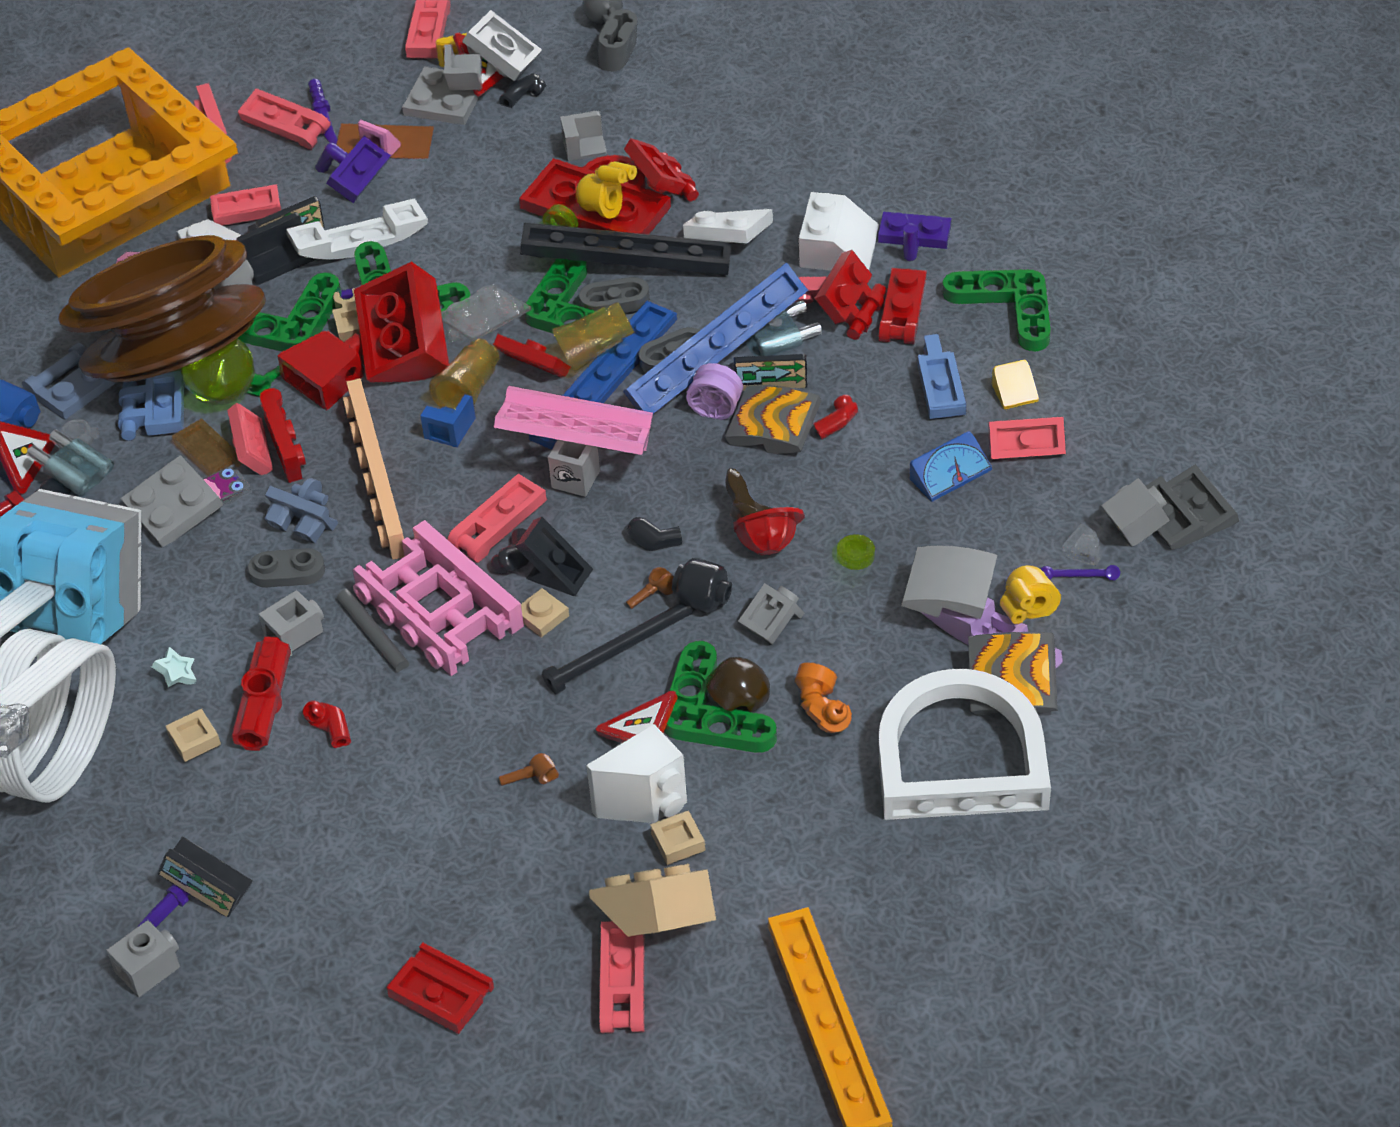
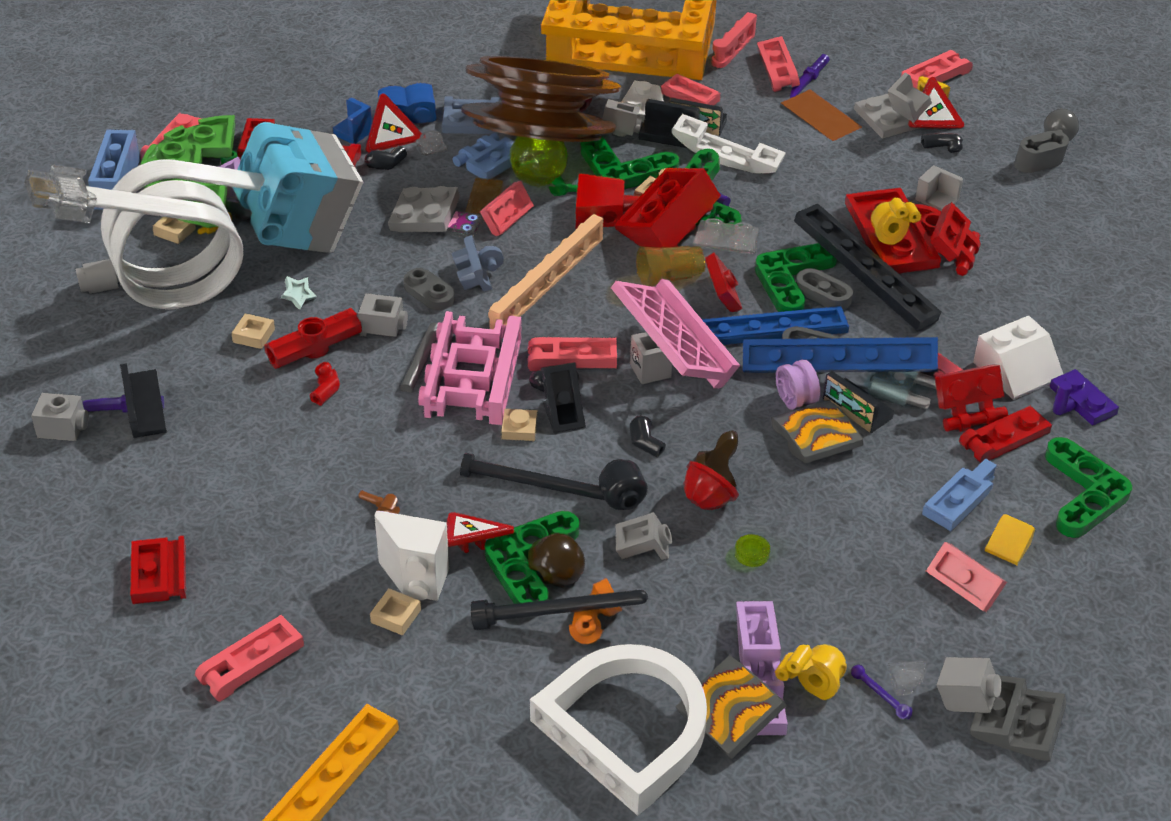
camera: 45 degrees right, 5 degrees down
(75, 465) = (404, 154): clear light blue piece -> none
(282, 434) = (525, 218): red plate -> none
(355, 168) = (777, 115): dark purple plate -> none
(379, 136) = (811, 109): bright pink slope -> none
(448, 424) = (614, 273): blue panel -> none
(501, 46) = (957, 104): light grey plate -> none
(560, 216) = (854, 222): clear neon green tile -> none
(592, 335) = (767, 295): clear yellow plant -> none
(656, 901) = (315, 630): tan slope -> none
(660, 580) = (596, 463): dark orange hand -> none
(728, 226) = (956, 303): white wing -> none
(747, 775) = (486, 614): none -> black piece
(844, 413) = (856, 464): red arm -> none
(949, 466) = (888, 551): slope -> none
(950, 580) = (768, 612): light grey slope -> none

